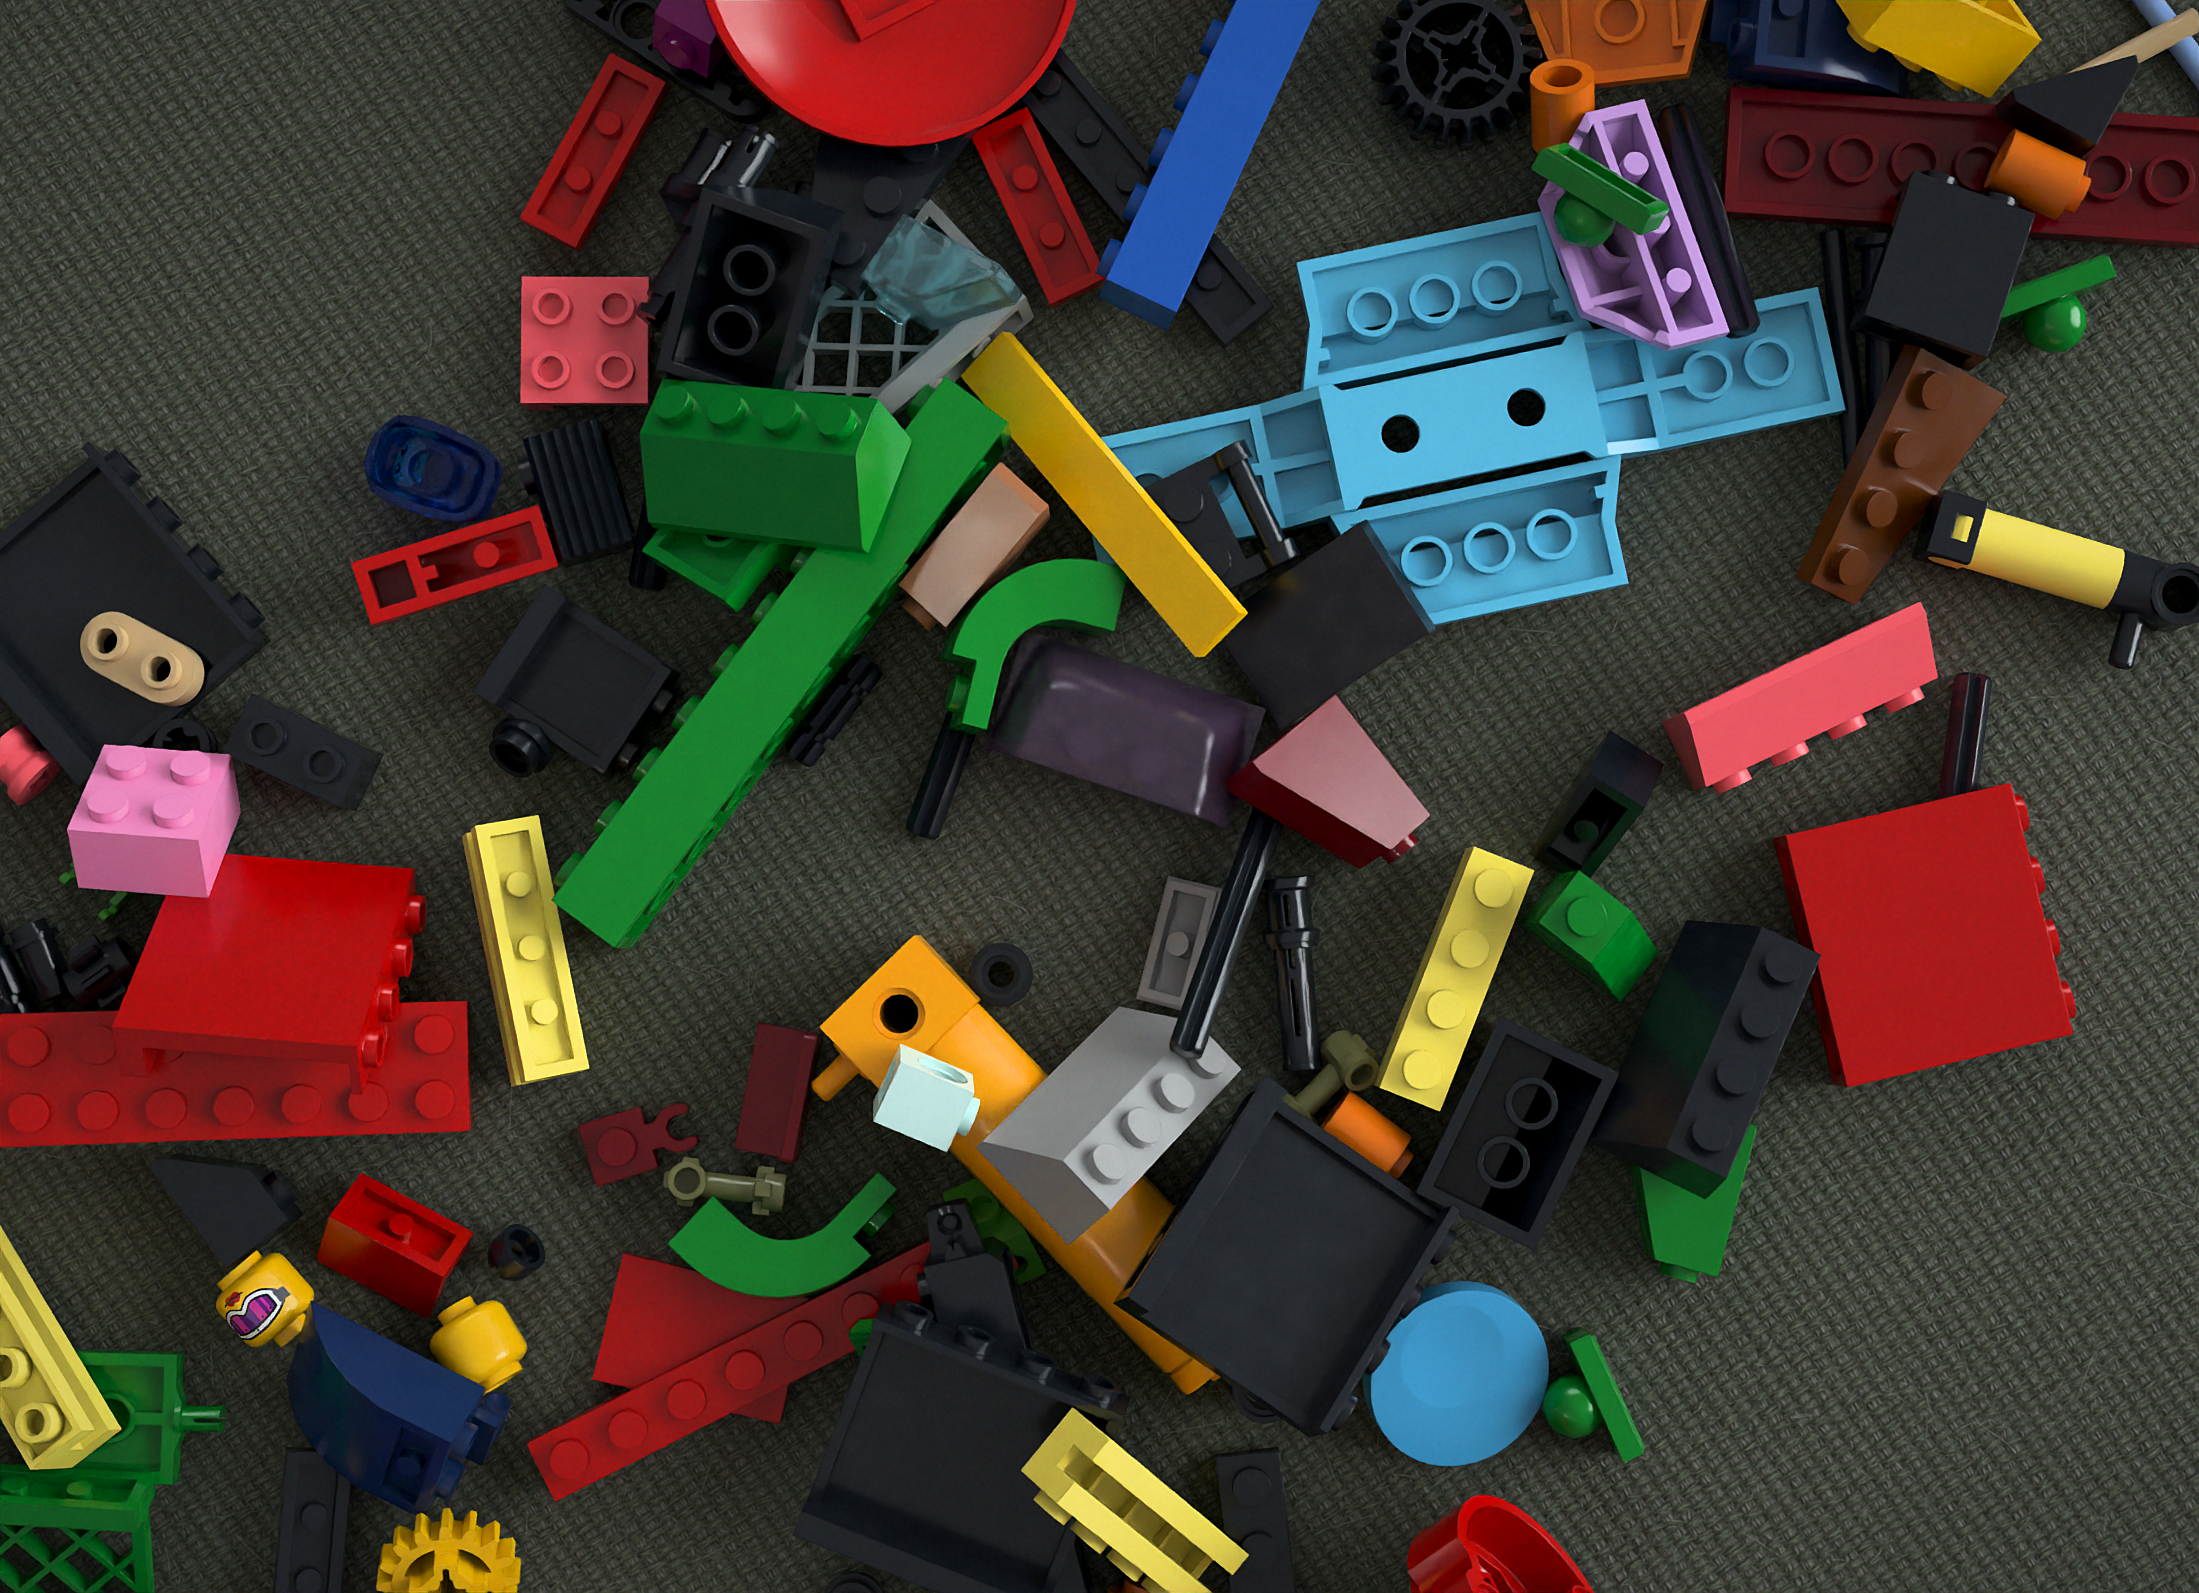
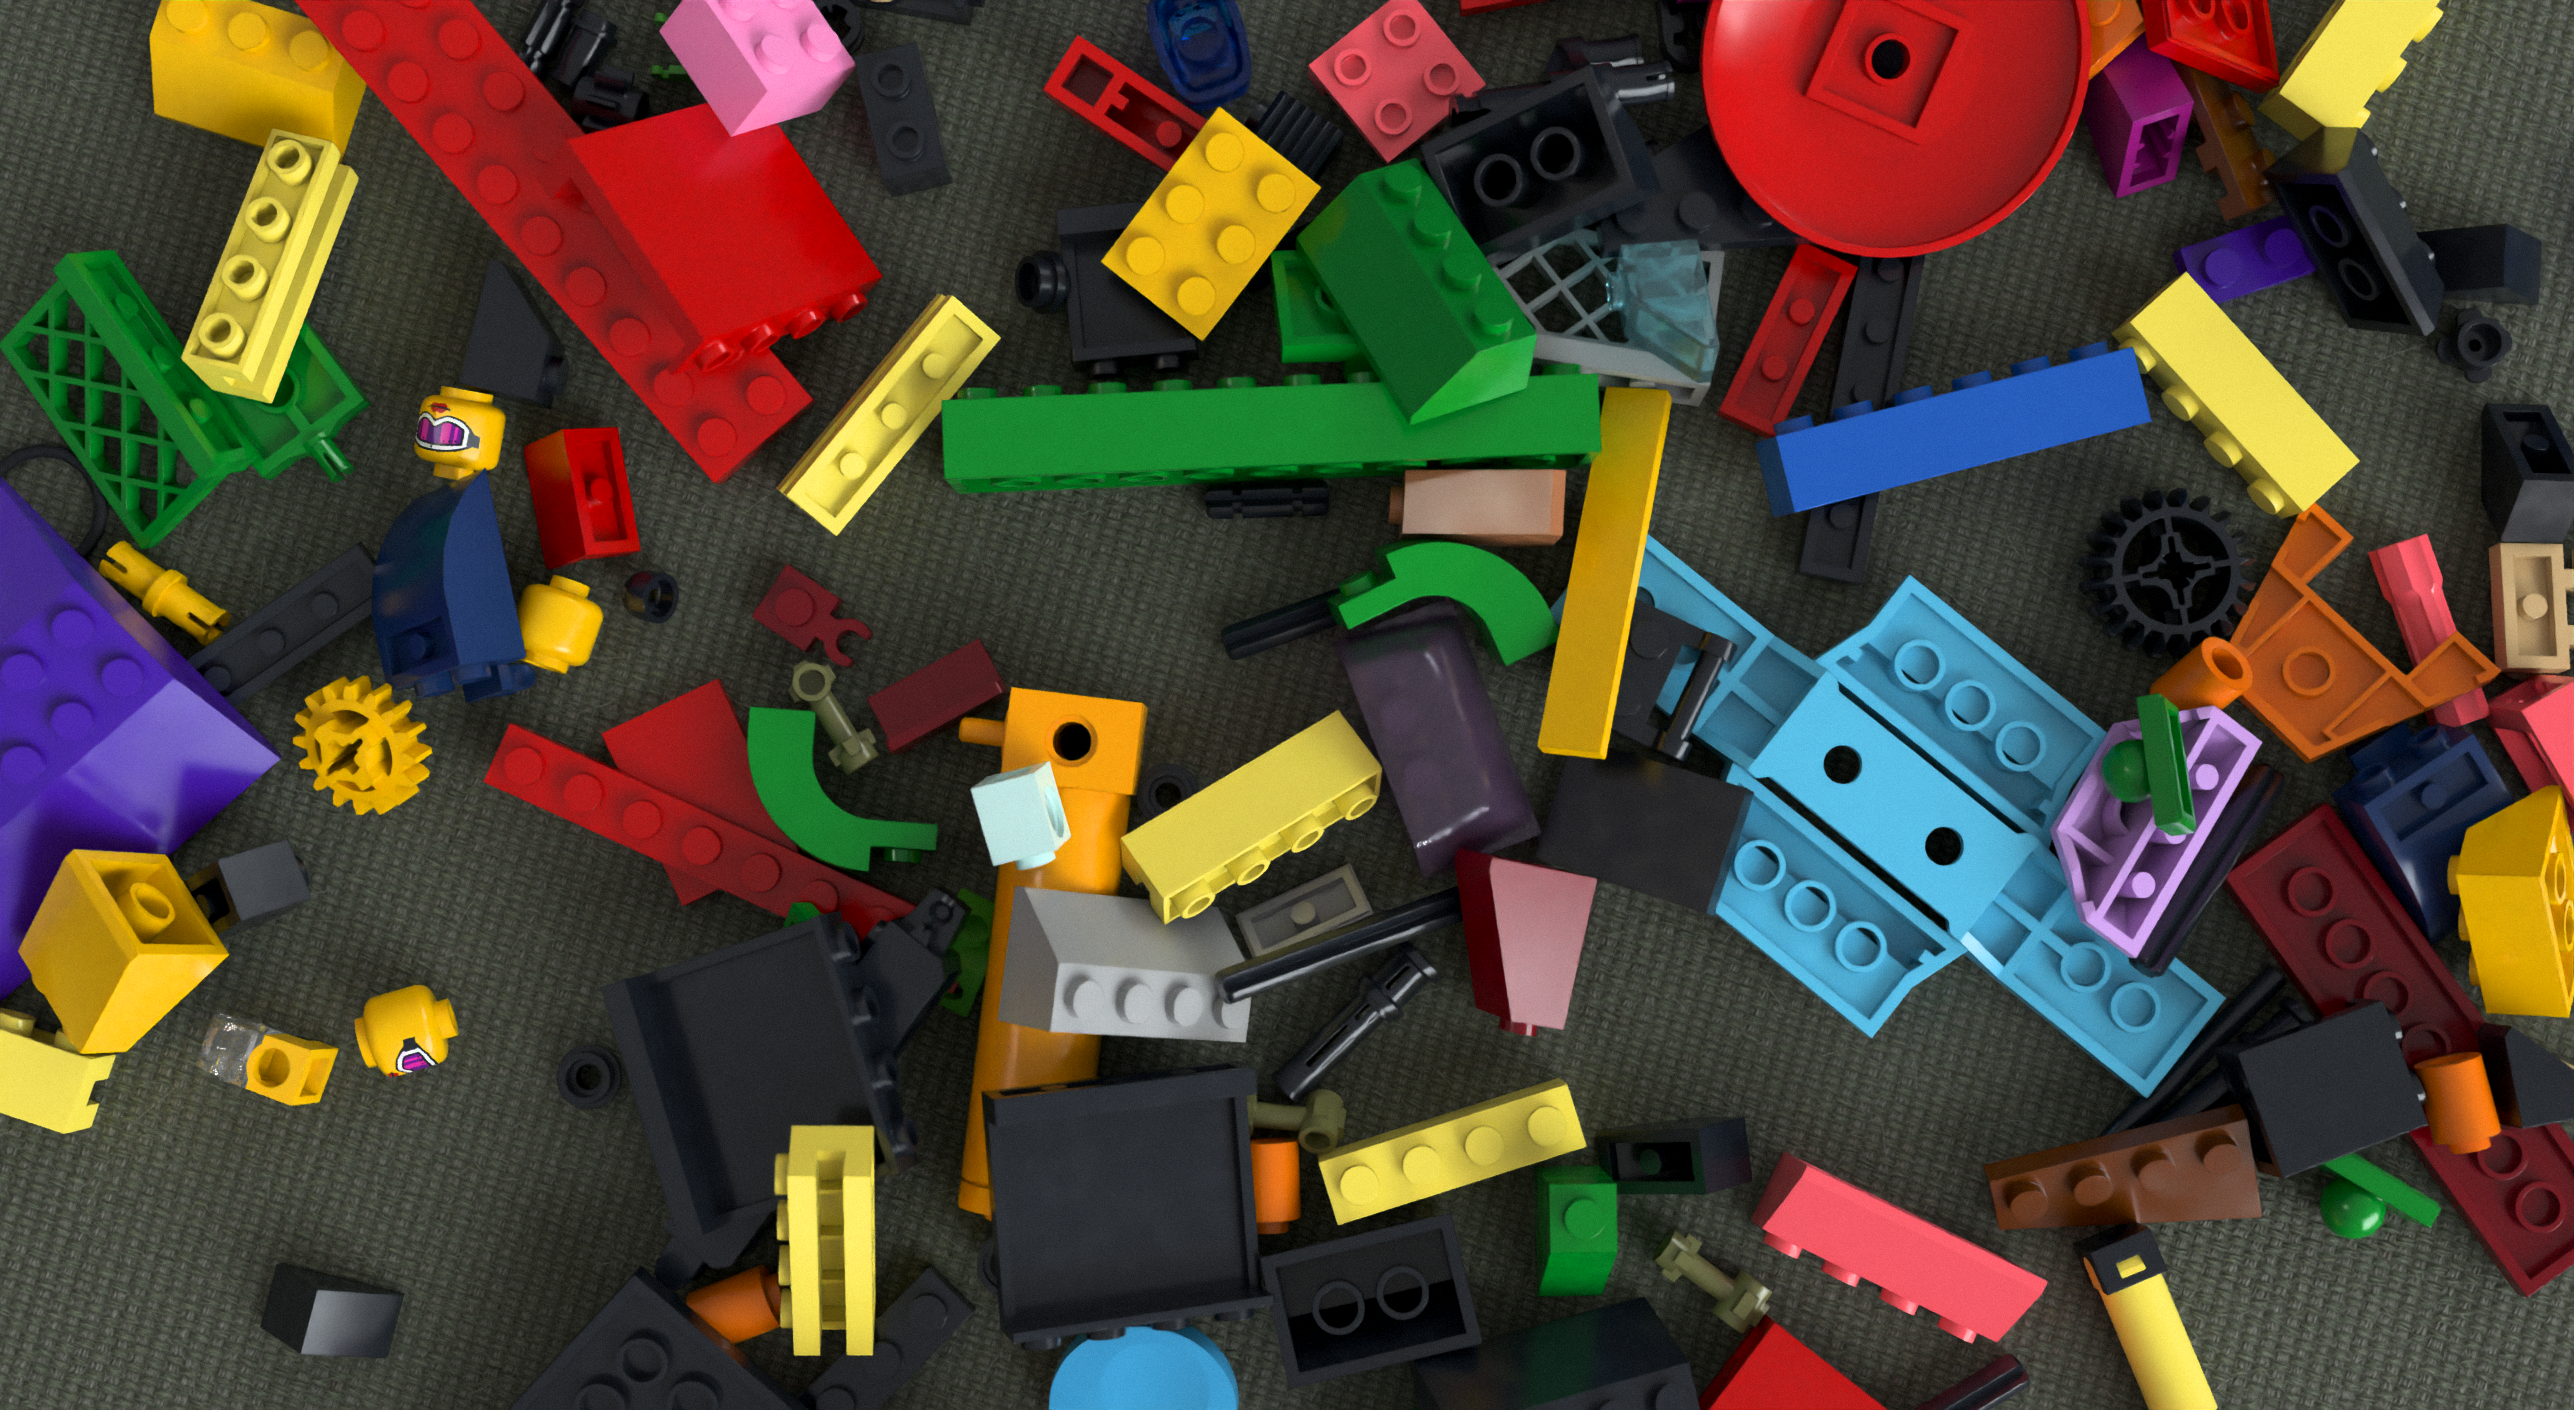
camera: 45 degrees right, 0 degrees up
(583, 579) = (1211, 224): none -> yellow plate
(1072, 922) = (1252, 818): none -> light yellow brick
(1748, 848) = (1739, 1299): none -> olive bar

